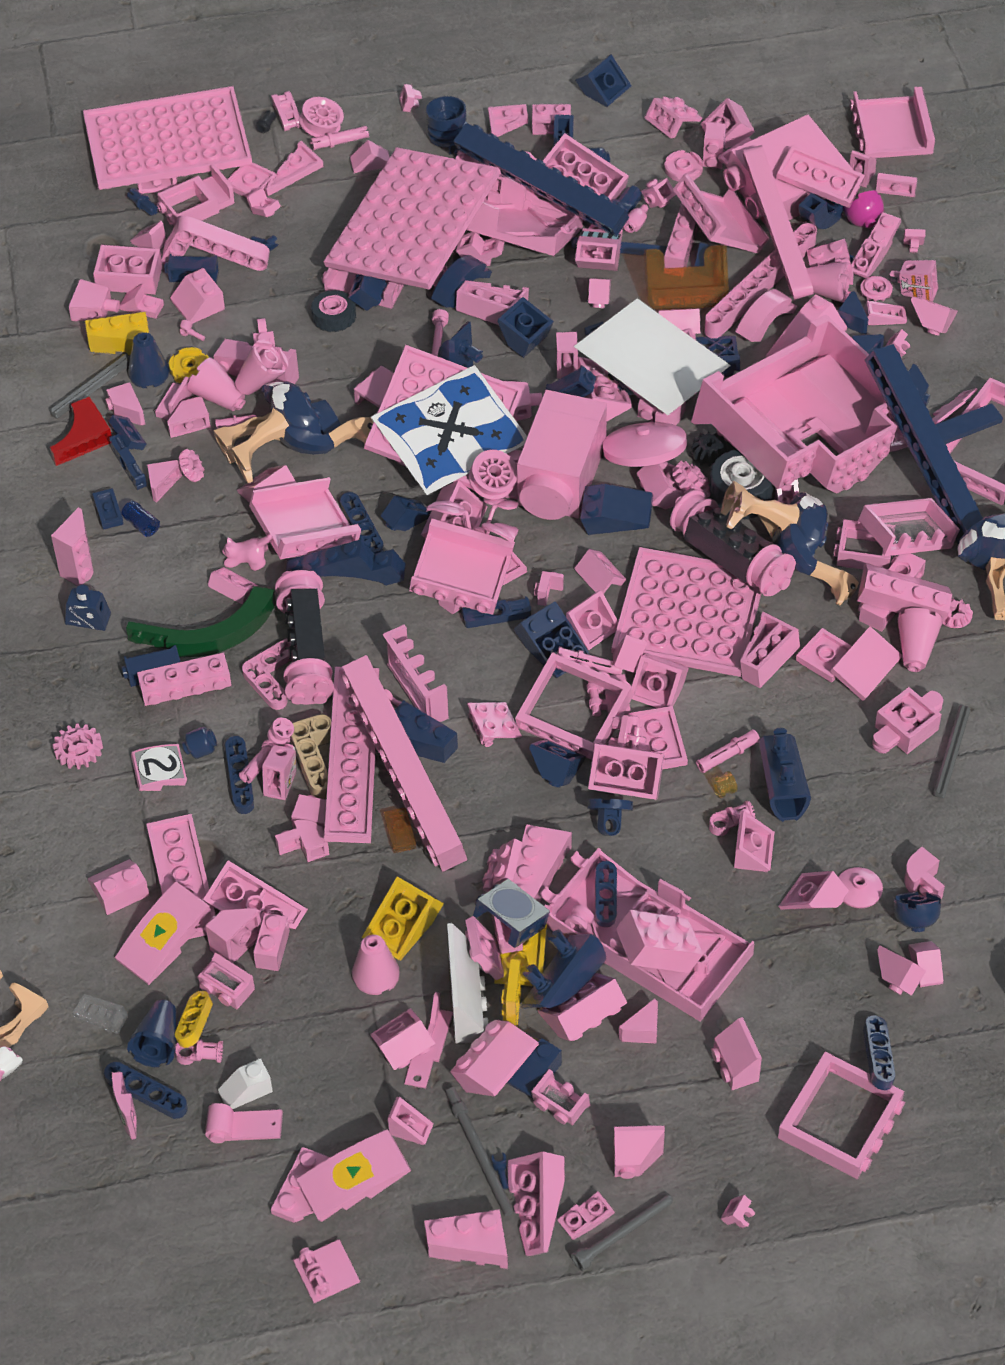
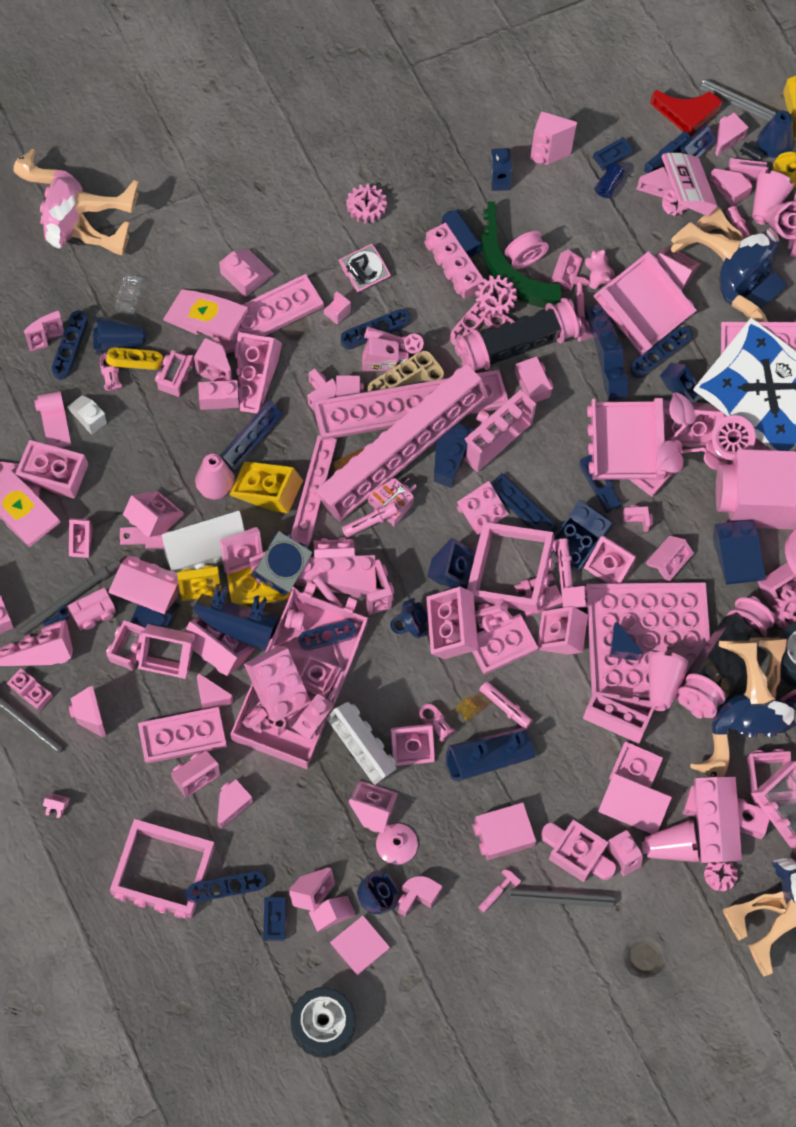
camera: 70 degrees right, 15 degrees up
(150, 394) = (751, 151): none -> black pin
(166, 769) = (357, 272): none -> black pin
(178, 442) = (689, 182): none -> bright pink slope
(199, 742) = (395, 290): dark blue head -> none
(201, 605) = (526, 249): none -> bright pink wheel
(202, 802) = (338, 309): none -> bright pink panel
(247, 646) = (503, 293): none -> bright pink gear
(252, 573) = (579, 281): none -> bright pink piece
(312, 1130) = (52, 468): none -> bright pink slope
(331, 918) = (251, 435): none -> dark blue plate
(359, 639) = (533, 379): none -> bright pink brick
(420, 874) = (310, 501): none -> bright pink plate
(460, 799) = (394, 491): none -> bright pink torso
(479, 821) = (378, 515): none -> bright pink pin
(501, 686) = (521, 505): none -> dark blue tile
(504, 1127) = (92, 609): none -> bright pink brick
(553, 881) = (326, 591): none -> bright pink piece
(569, 821) = (380, 599): none -> bright pink bracket
(598, 1038) = (164, 666): none -> bright pink window
(685, 1065) = (182, 735): none -> bright pink plate
(688, 982) = (254, 718): none -> bright pink tile
(691, 627) = (622, 645): none -> dark blue slope
(706, 915) = (315, 715): none -> bright pink torso
(745, 595) = (665, 678): none -> bright pink cone
(747, 883) = (361, 742): none -> white slope
(779, 1030) = (232, 802): none -> bright pink slope
(870, 782) = (504, 831): none -> bright pink brick
(918, 676) = (624, 852): none -> bright pink torso
(921, 792) = (510, 877): none -> bright pink piece
(922, 1017) = (274, 919): none -> dark blue plate
(967, 944) = (360, 945): none -> bright pink tile

